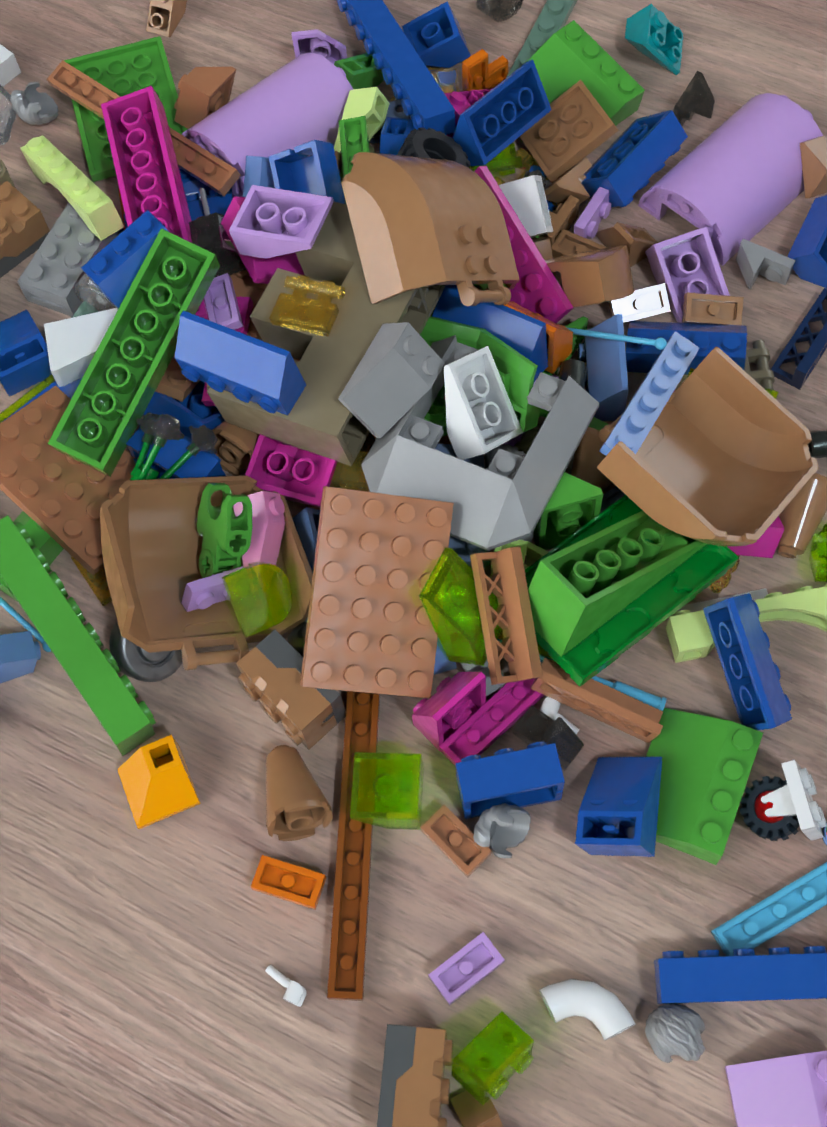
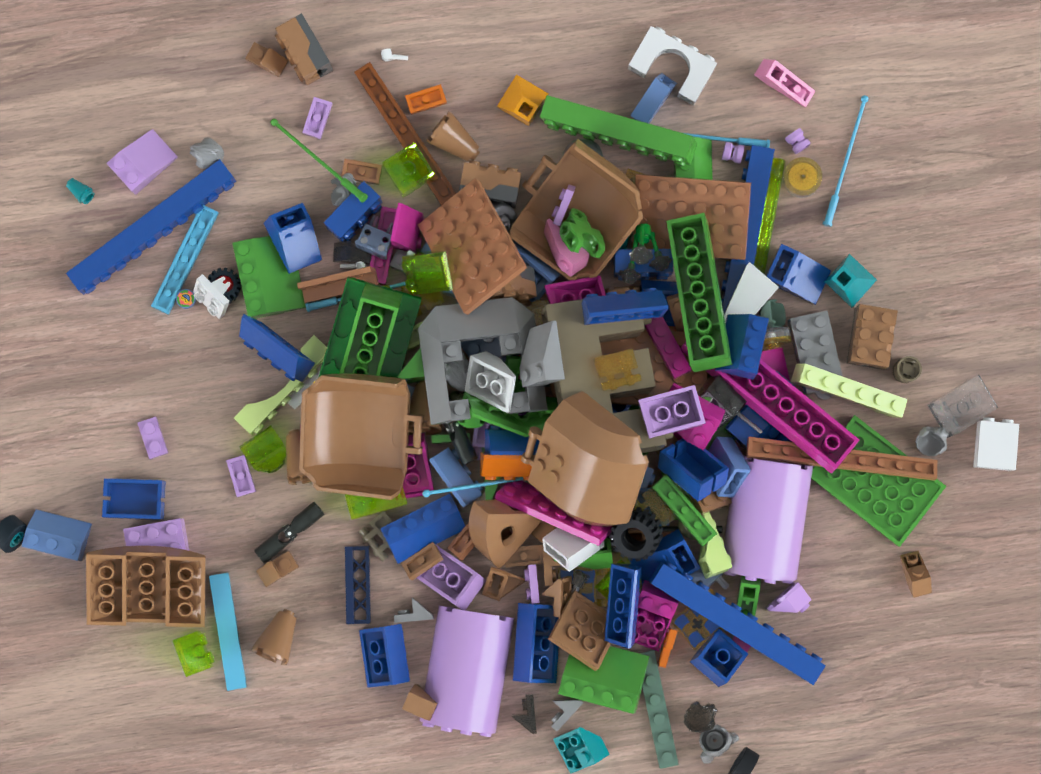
camera: 140 degrees right, 20 degrees up
(203, 93) = (822, 506): nougat slope -> none
(222, 303) = (678, 356): lavender plate -> none
(259, 596) = (538, 217): clear neon green slope -> none
(493, 820) = (345, 182): none -> bright green piece
(493, 1059) = (278, 85): clear neon green brick -> none
(506, 720) = (374, 242): none -> sand blue piece
(512, 615) = (402, 286): nougat fence -> none
(588, 1001) = (252, 141): white cylinder -> none
(652, 394) = (410, 456): medium blue plate -> none
(653, 79) = (569, 708): none -> light grey slope

